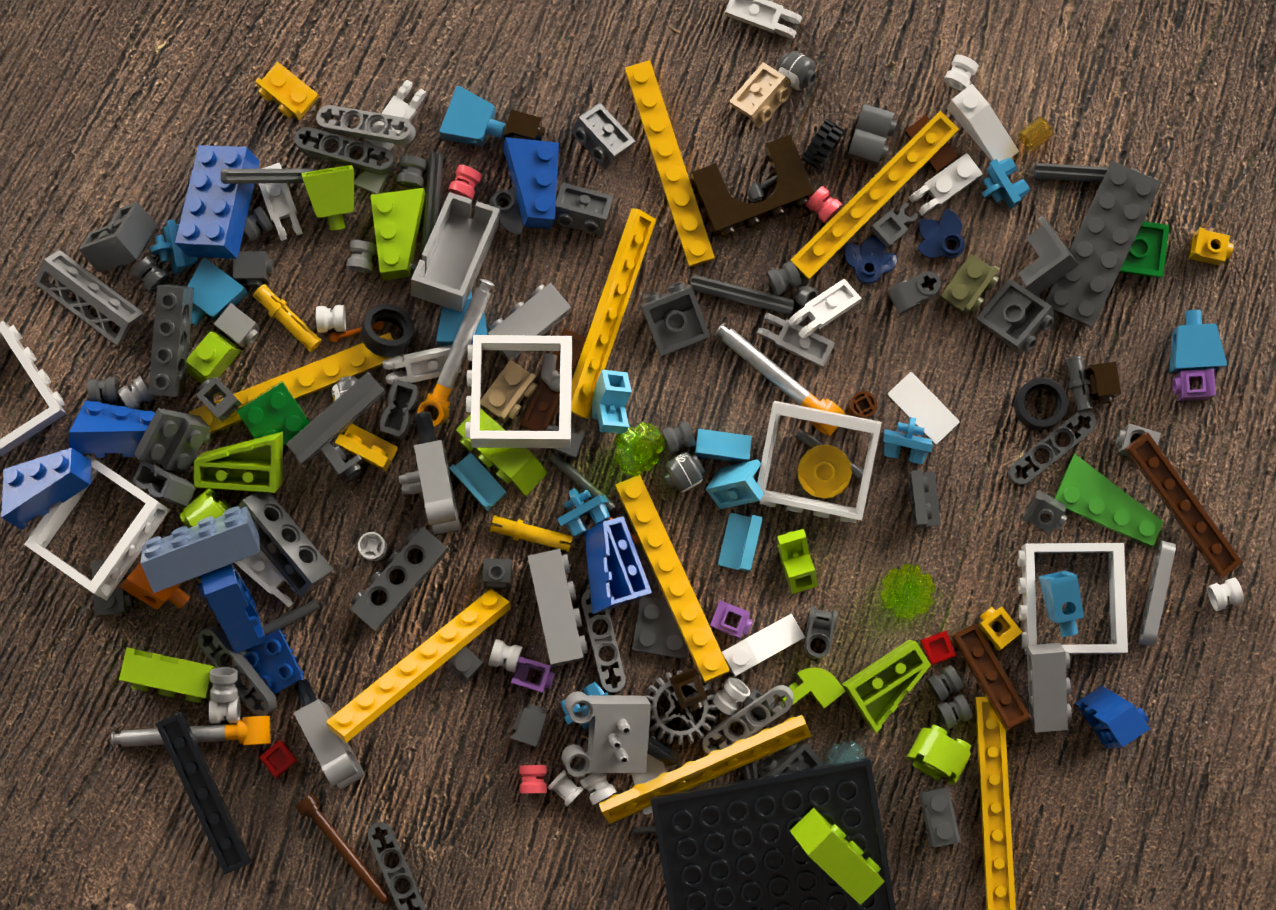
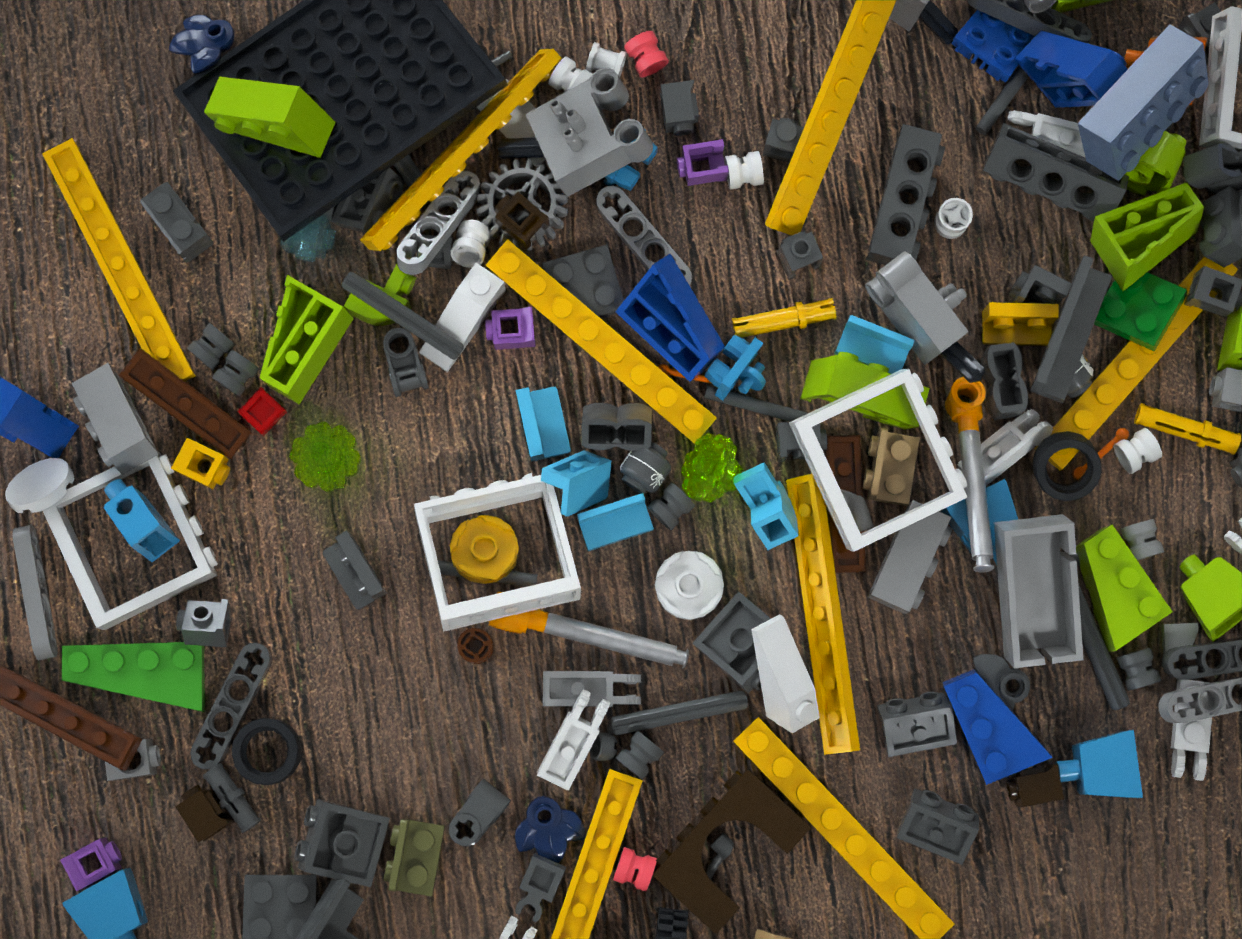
camera: 155 degrees right, 0 degrees up
(465, 181) = (1069, 695): coral wheel -> none
(556, 609) = (713, 243): light grey piece -> none
(660, 278) = (783, 676): none -> white slope
(690, 510) = (613, 426): none -> dark grey brick
(692, 379) = (689, 585): none -> white tile
(797, 561) = (467, 427): lime brick -> none
(806, 662) = (402, 315): none -> dark grey axle
(919, 446) = (403, 633): dark azure hips -> none
(923, 405) = (404, 683): white sticker -> none
(938, 233) = (481, 903): dark blue plate -> none
(939, 754) = (205, 285): lime brick -> none
(1122, 666) = (39, 485): none -> white tile

